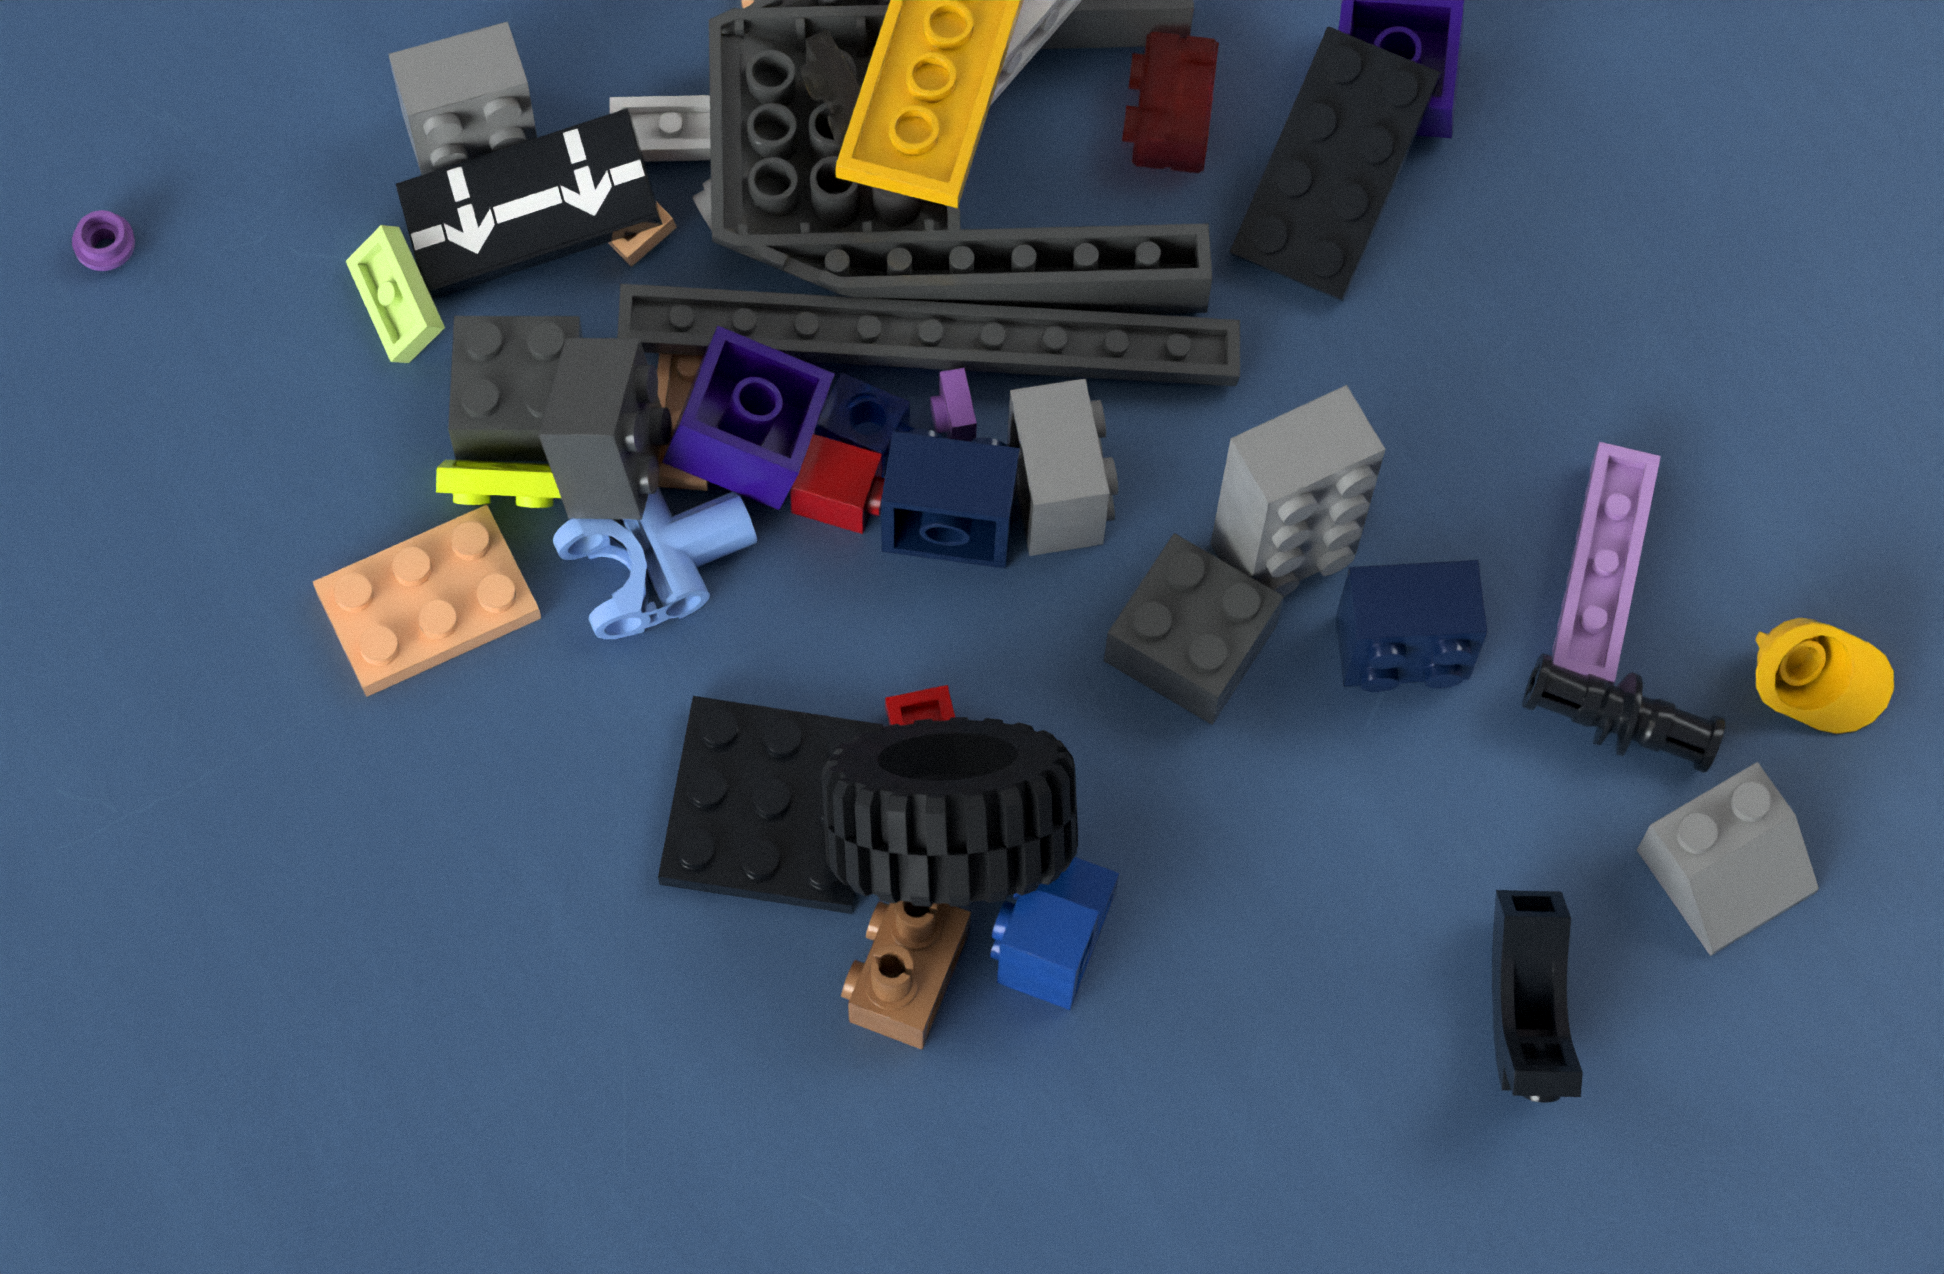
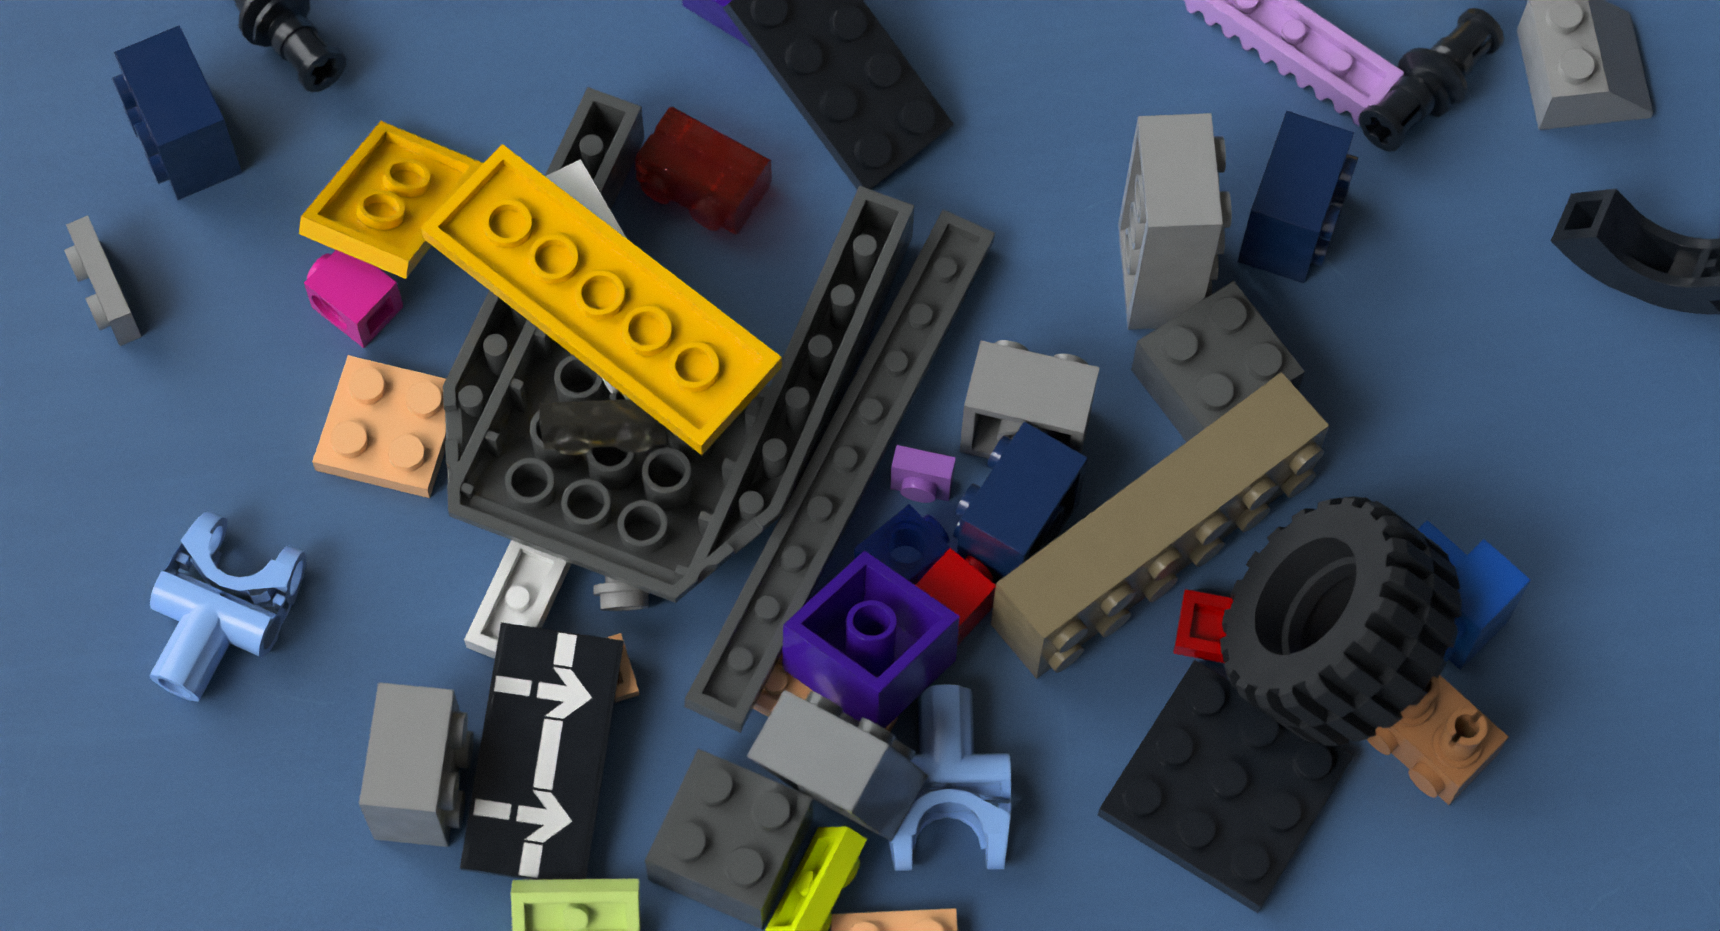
camera: 65 degrees left, 0 degrees up
(992, 629) = (1159, 527): none -> dark tan brick

